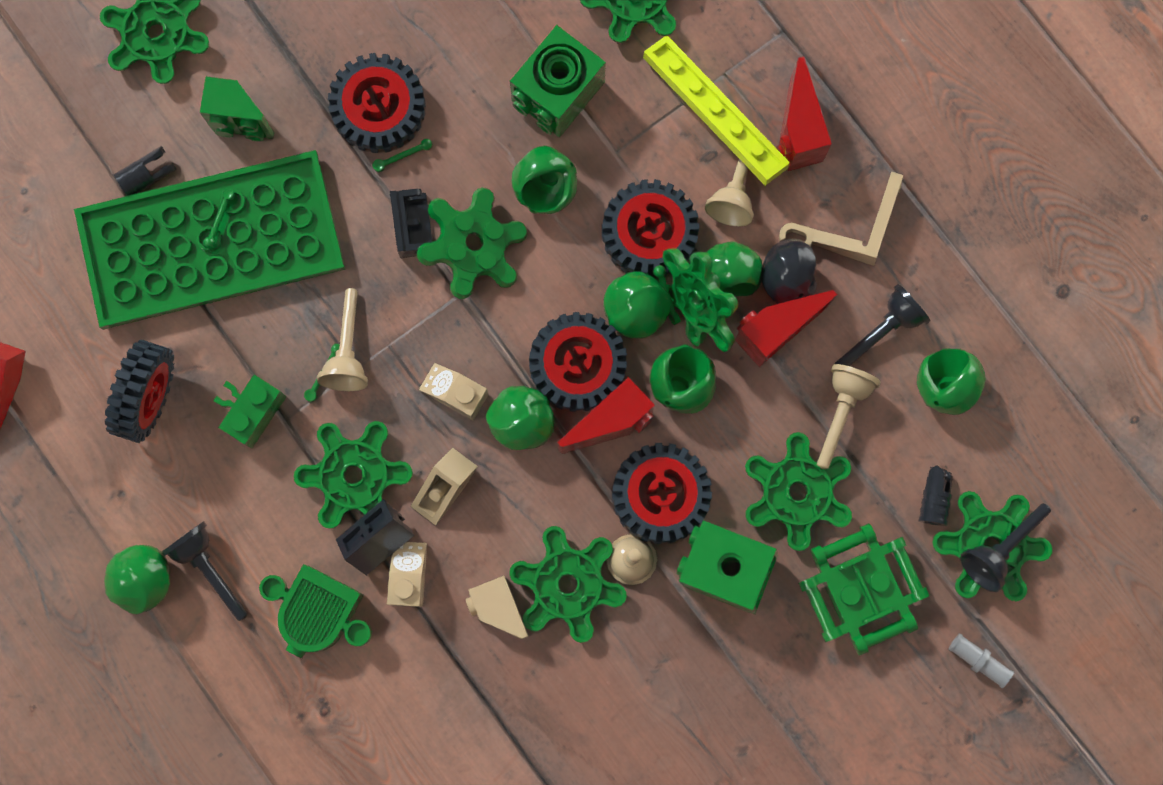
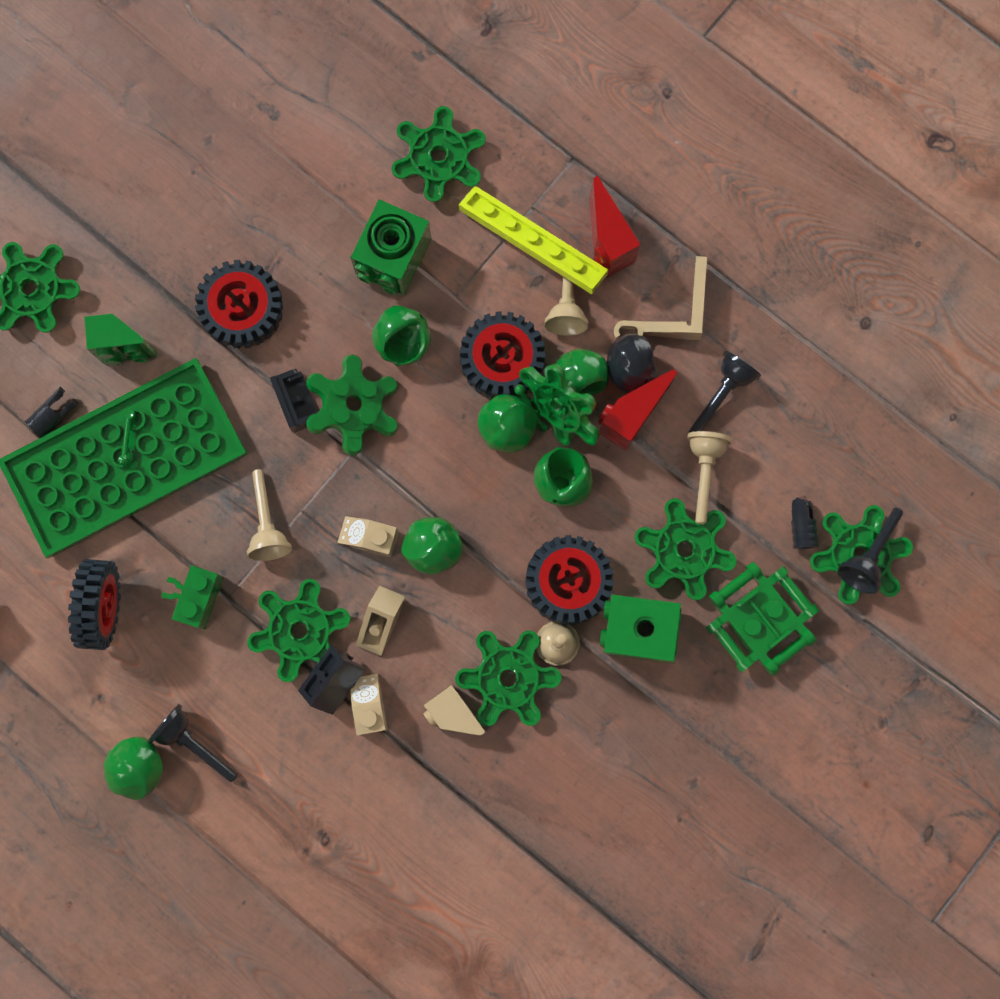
camera: 15 degrees left, 0 degrees up
(310, 394) = (245, 570): green hinge -> none
(315, 611) = (296, 757): green piece -> none
(379, 165) = (255, 357): green hinge -> none
(605, 347) = (488, 466): wheel -> none
(613, 418) = (513, 524): red slope -> none
(951, 381) = (791, 422): green piece -> none
(981, 660) = (876, 654): light grey pin -> none

